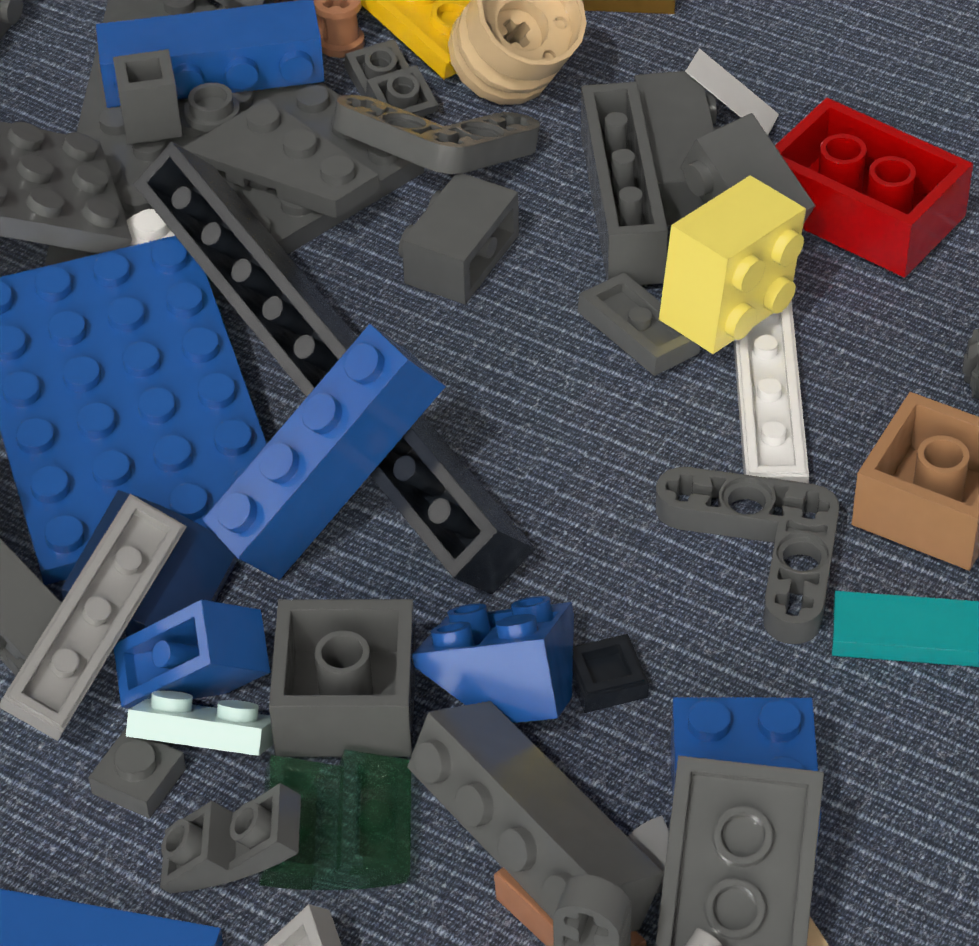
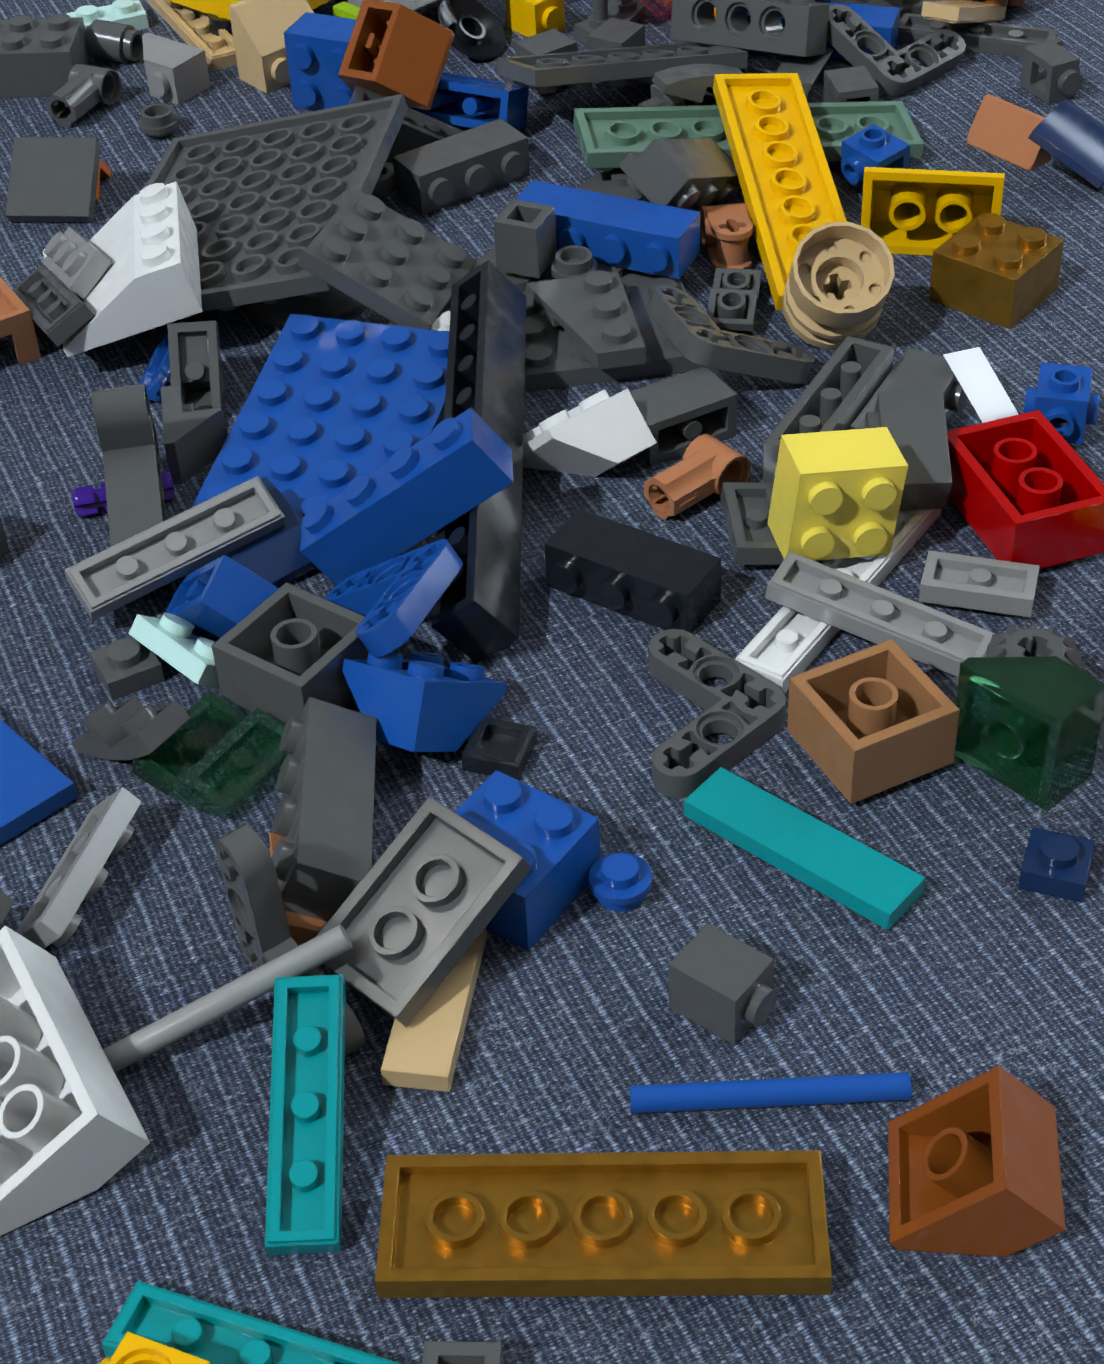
camera: 35 degrees right, 5 degrees down
(338, 572) = (397, 594): none -> blue beam
(407, 291) = (589, 437): none -> white slope
(540, 290) = (697, 476): none -> nougat piece
(575, 428) = (633, 572): none -> black brick
(811, 71) = (1064, 399): none -> blue brick
(839, 370) = (876, 613): none -> light grey tile
(846, 749) = (620, 881): none -> blue plate
(893, 297) = (979, 583): none -> light grey plate

